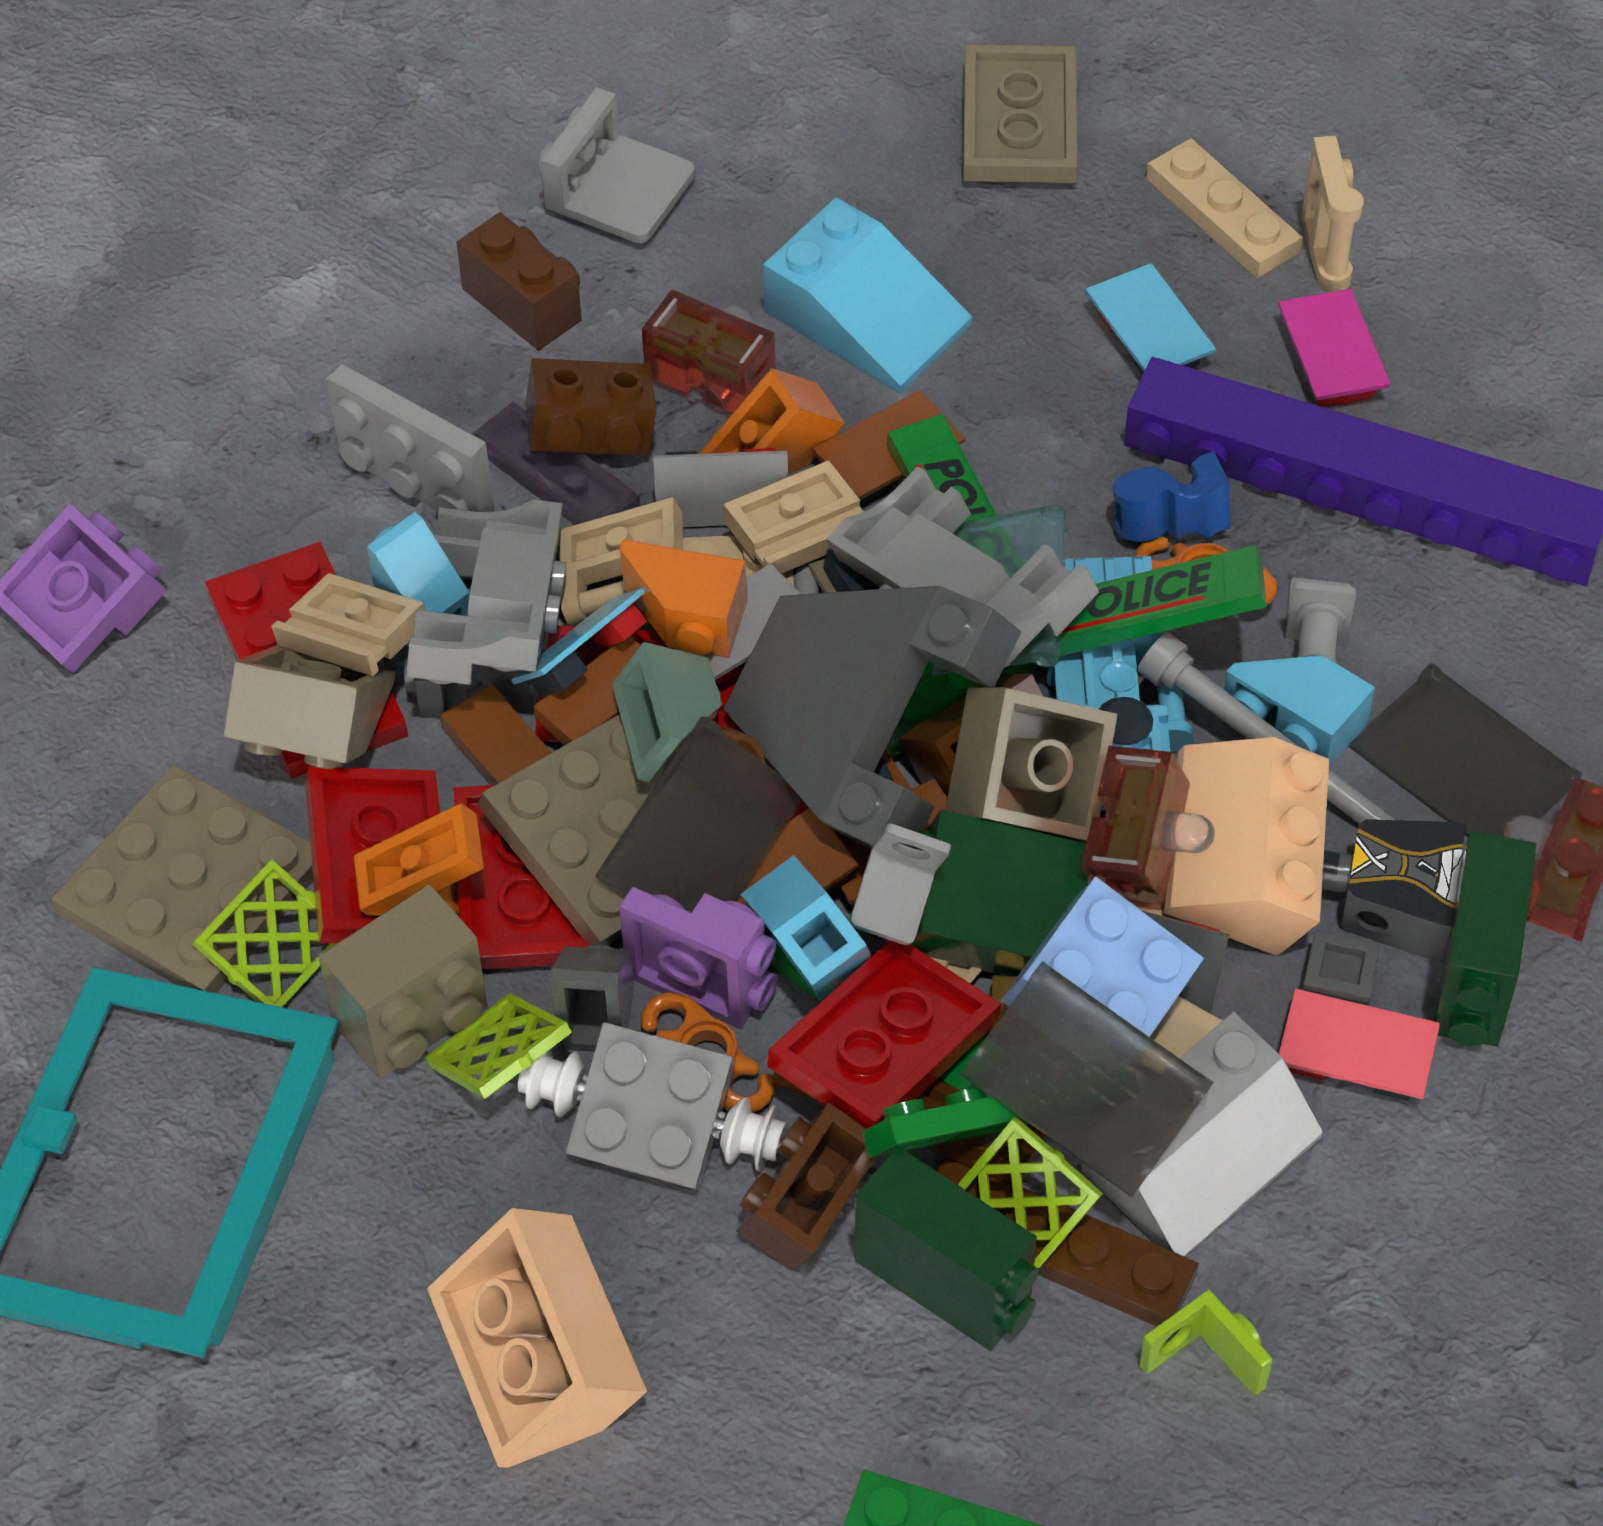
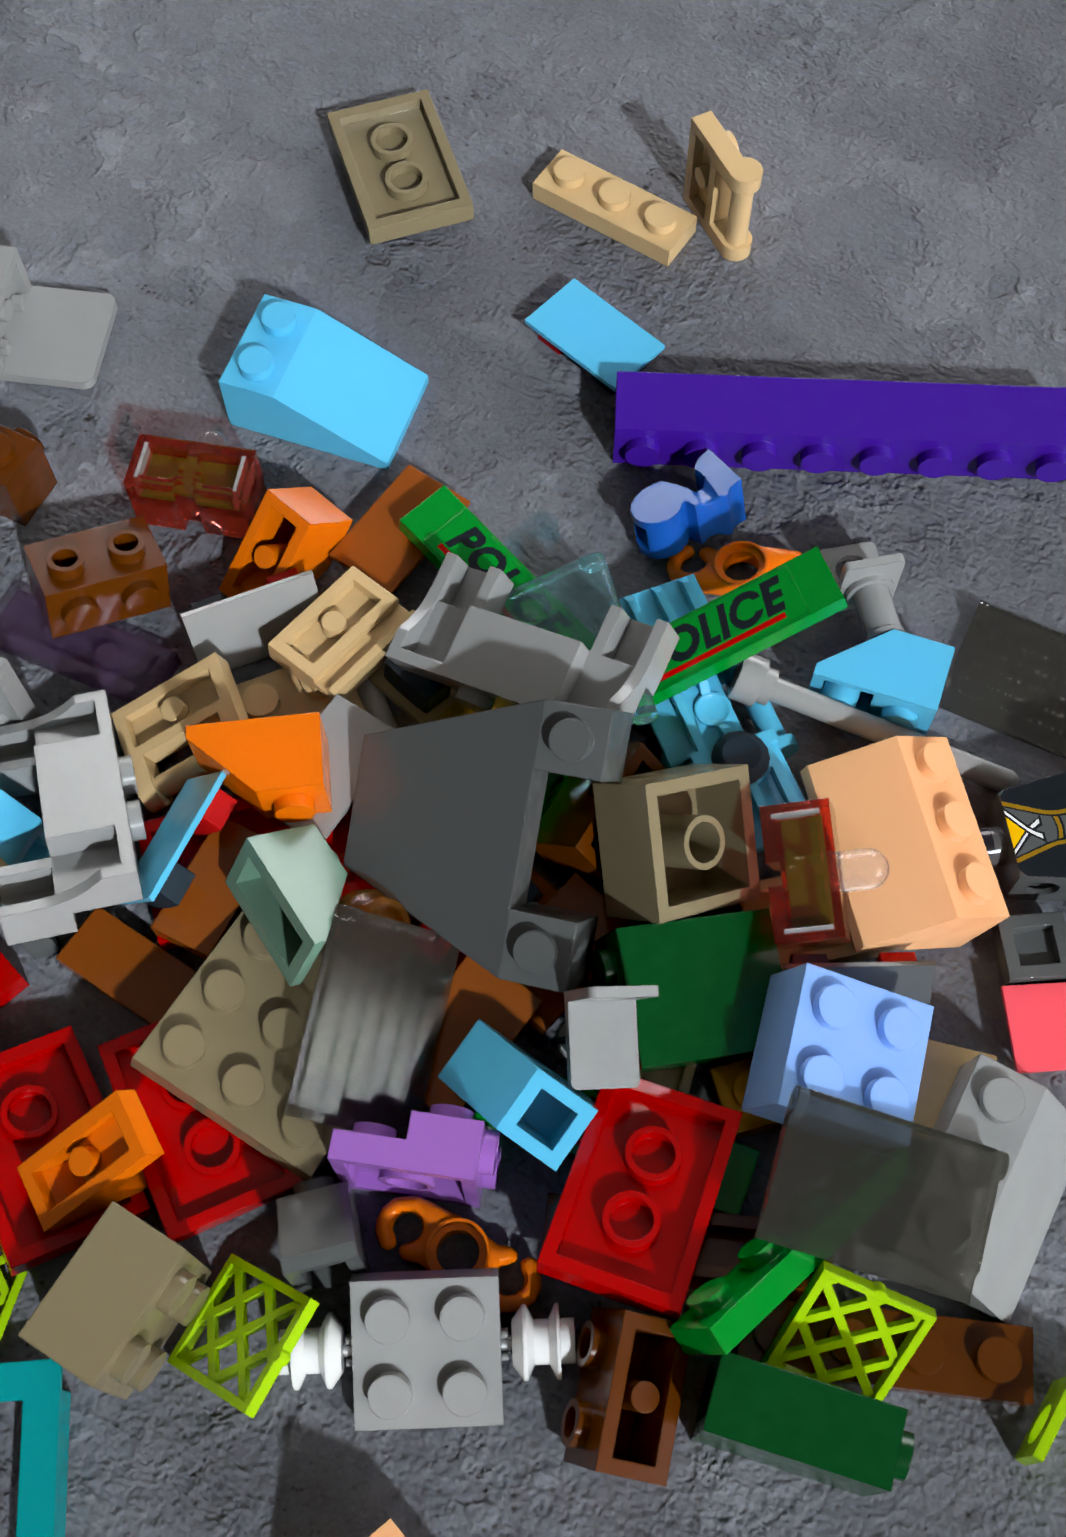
camera: 20 degrees left, 10 degrees up
(1334, 347) = (767, 313): dark pink piece -> none

